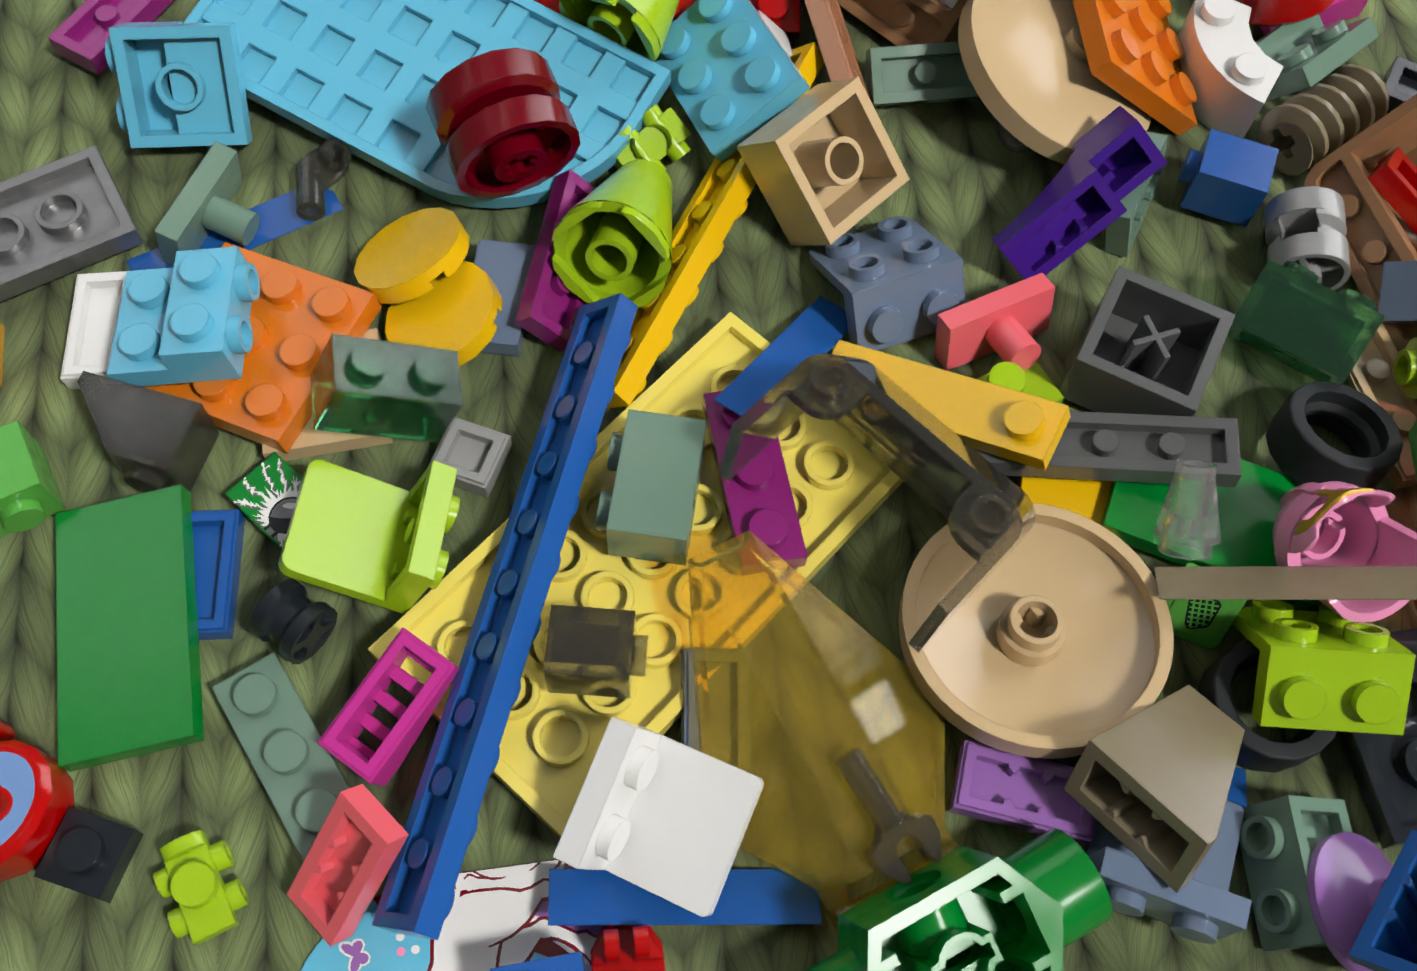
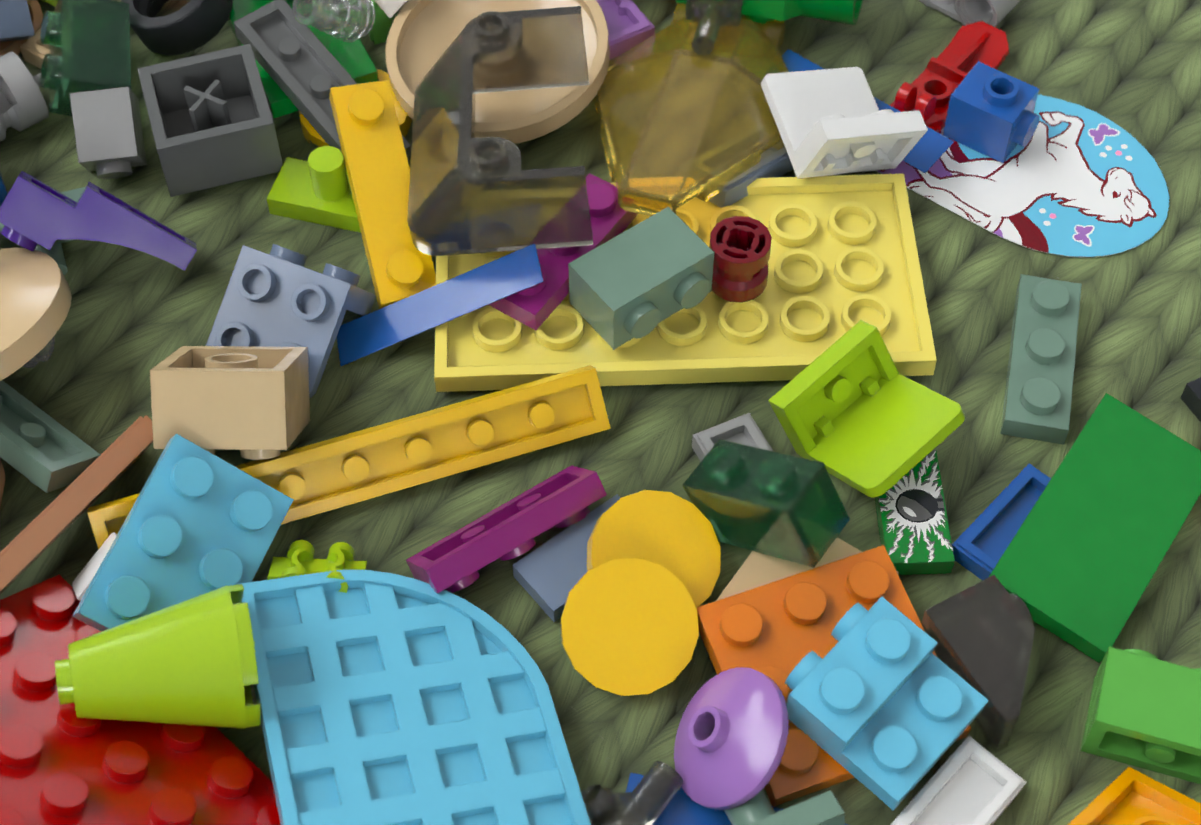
camera: 130 degrees left, 10 degrees down
(197, 885) = (1163, 320): lime piece -> none
(277, 235) = (731, 738): none -> medium lavender dish
(293, 621) = (983, 430): black wheel -> none
(343, 733) = (984, 301): dark pink slope -> none
(347, 864) = (1052, 238): coral tile -> none
(502, 122) = (458, 600): dark red wheel -> none
(507, 622) = (788, 299): blue plate -> none
(593, 651) = (798, 216): clear smoke brick -> none
(598, 584) = (740, 258): none -> dark red wheel
(618, 237) = (437, 487): lime cone -> none
(998, 324) = (266, 219): coral tile -> none
(1204, 272) = (108, 131): none -> light grey brick

